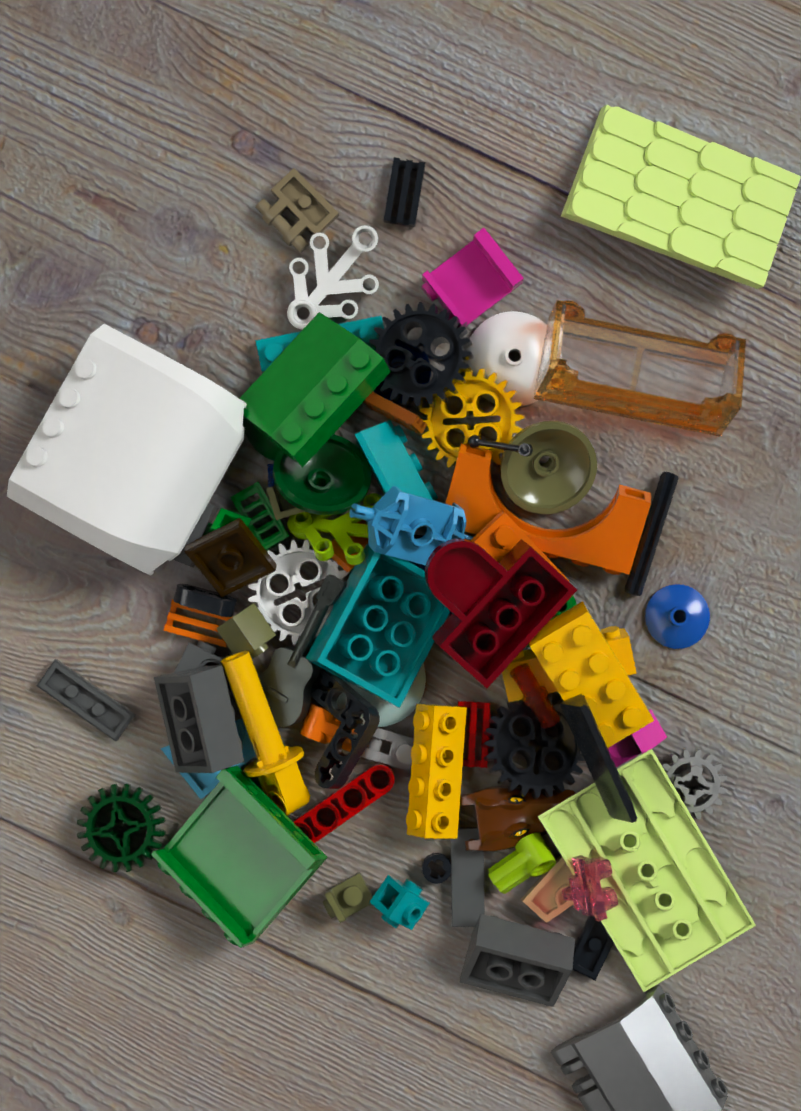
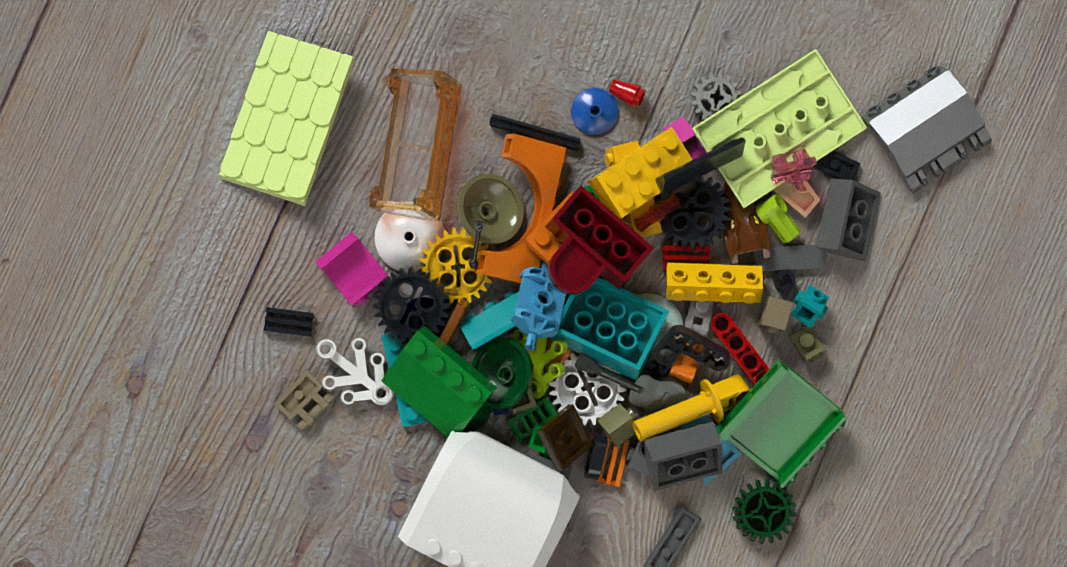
camera: 90 degrees left, 0 degrees up
(388, 853) = (774, 315): none -> dark tan brick
(702, 662) = (627, 92): none -> red cone

